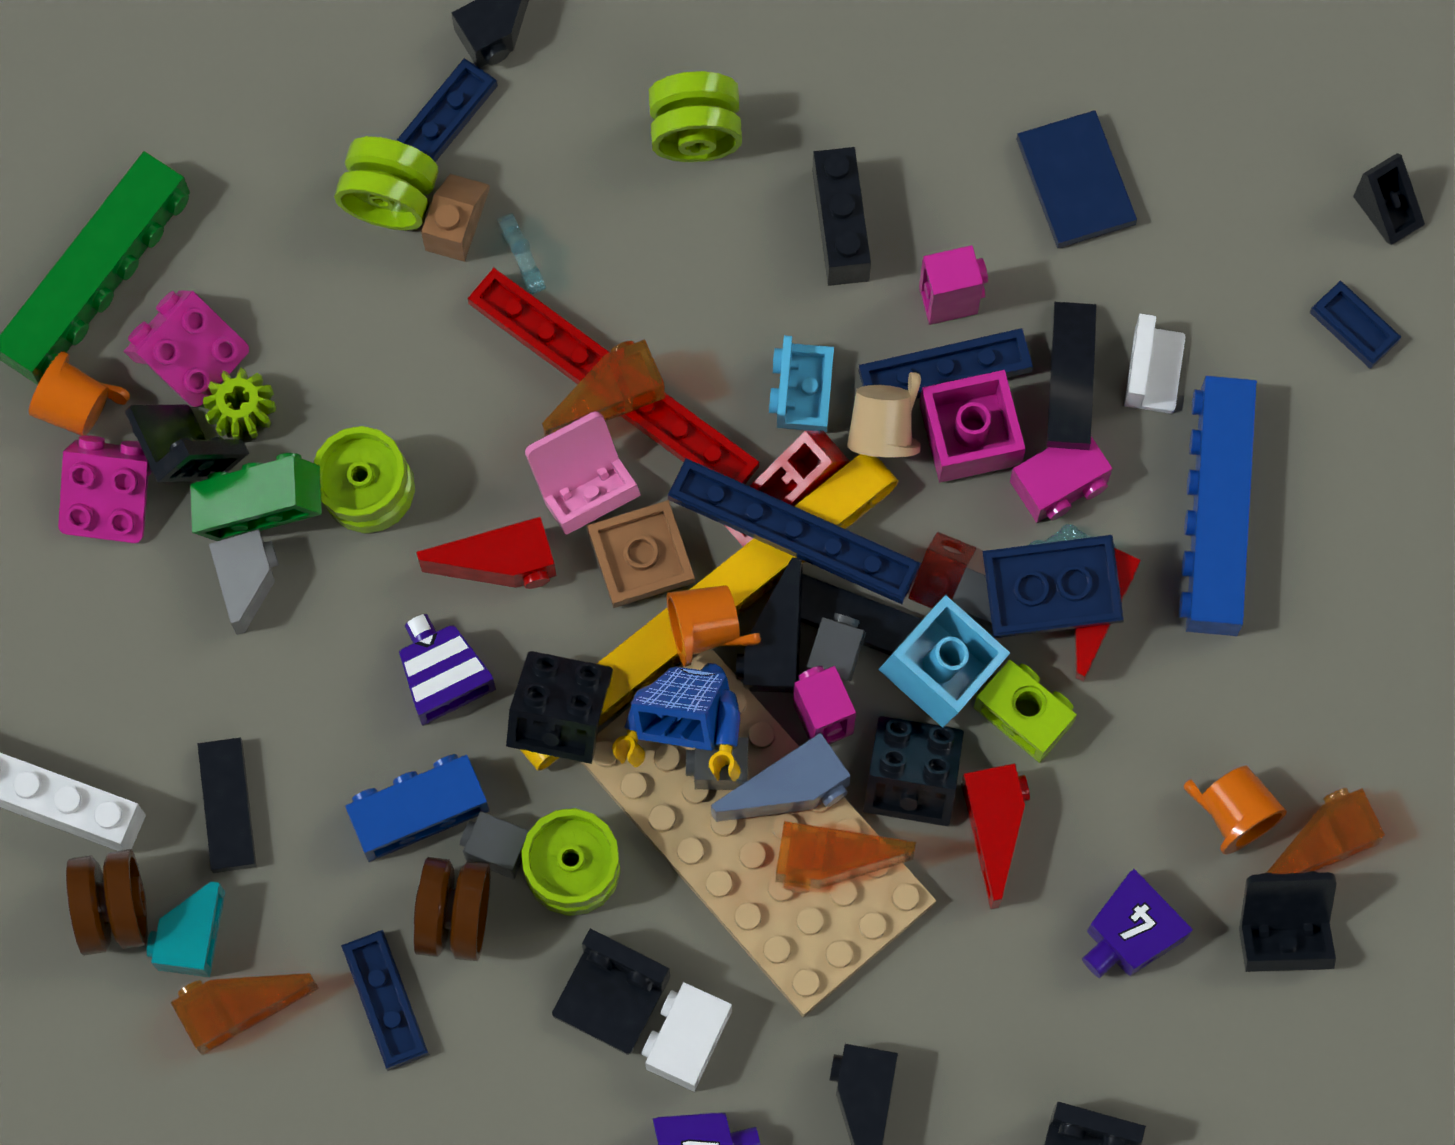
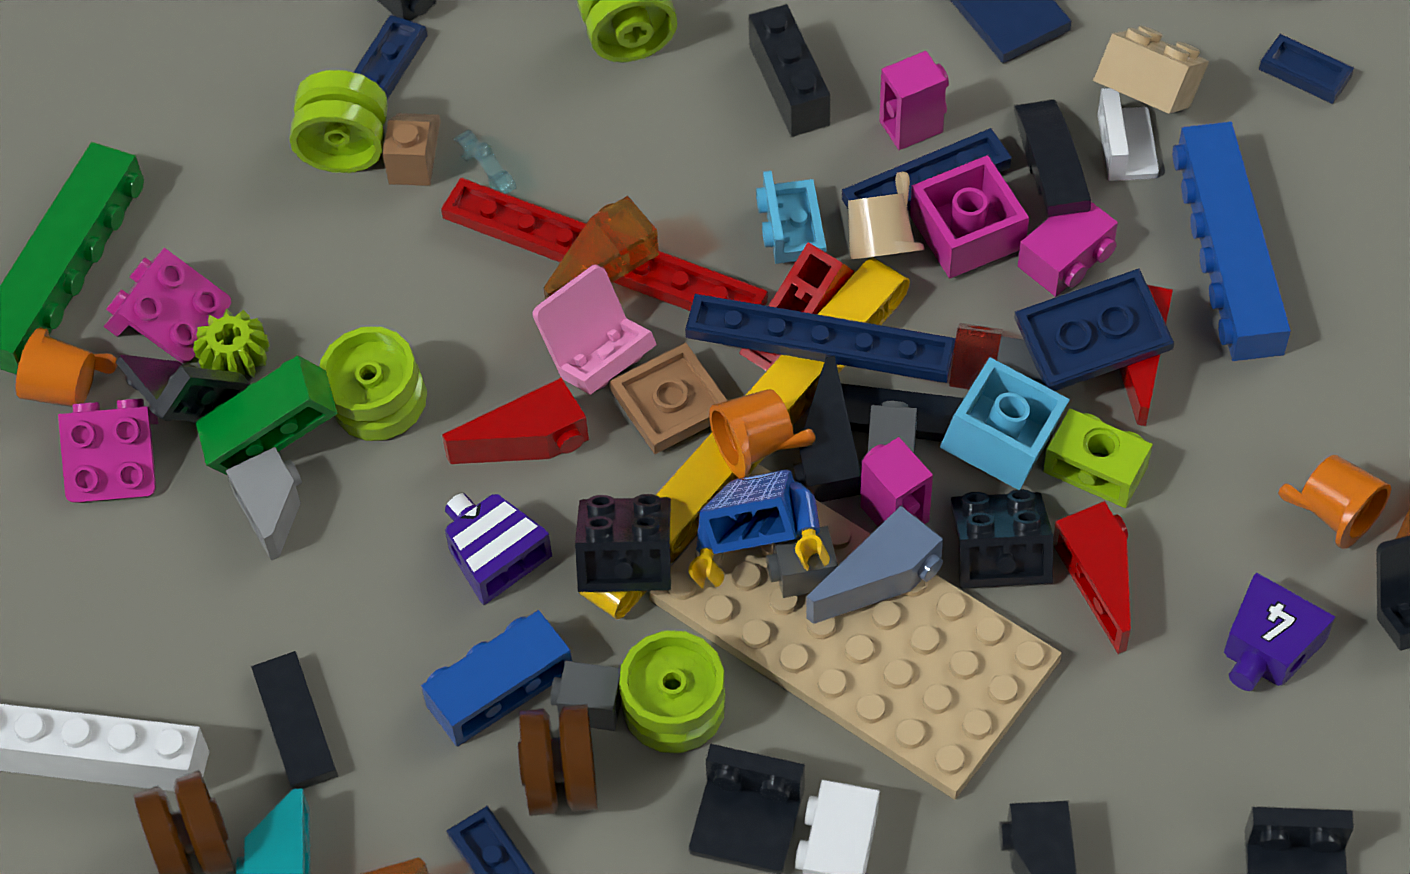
camera: 10 degrees left, 15 degrees down
(828, 856) = (939, 625): clear orange slope -> none
(1194, 305) = (1151, 69): none -> tan brick

